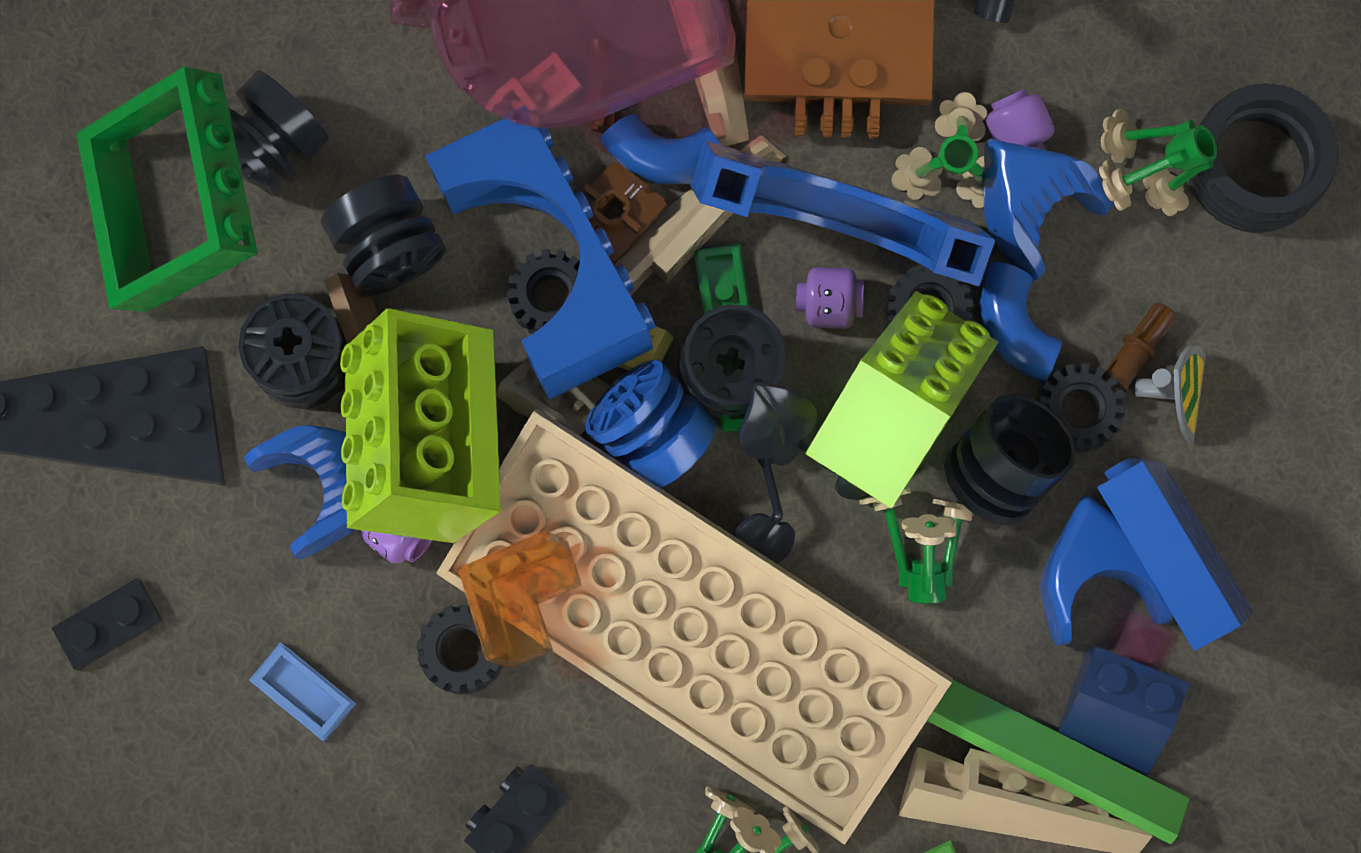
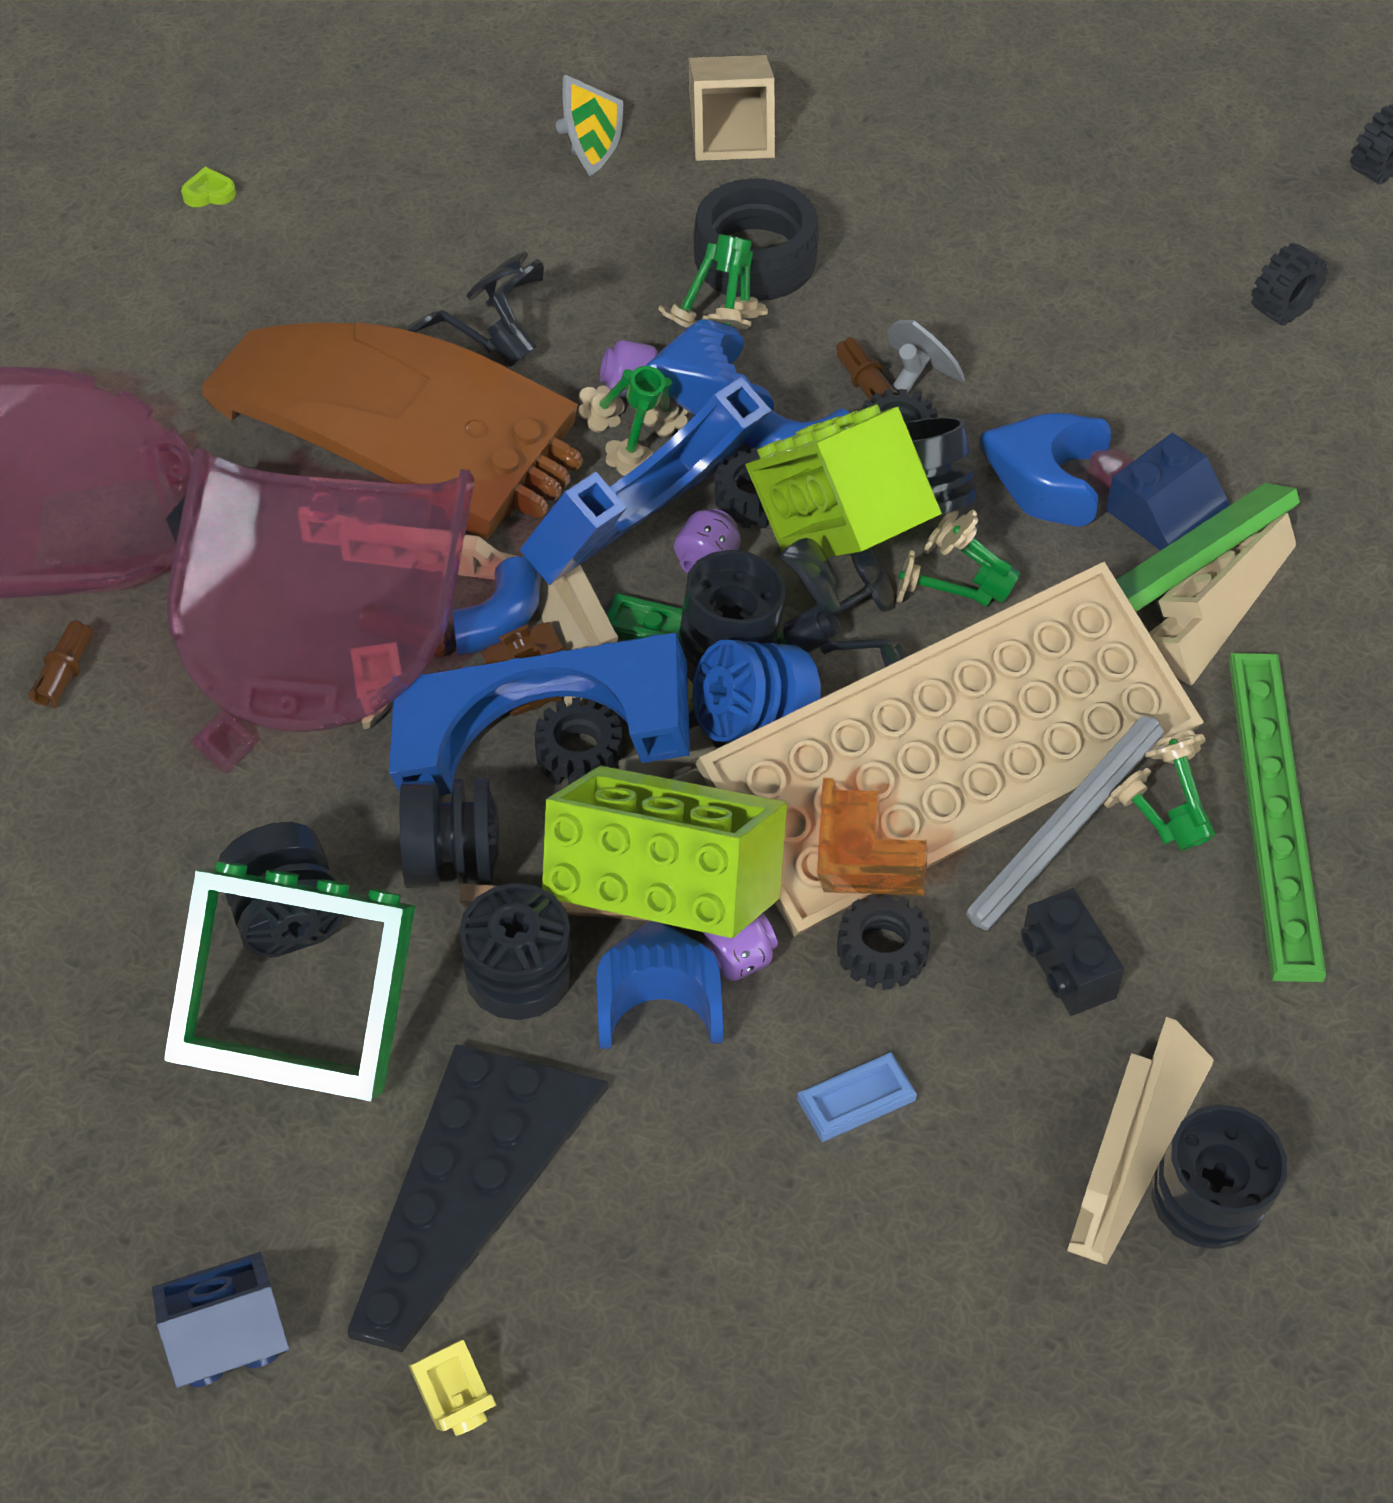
camera: 65 degrees left, 25 degrees down
(107, 624) = (696, 1248): black plate -> none
(664, 760) = (1064, 823): none -> light grey axle
(1175, 550) = (1067, 368): blue brick -> none

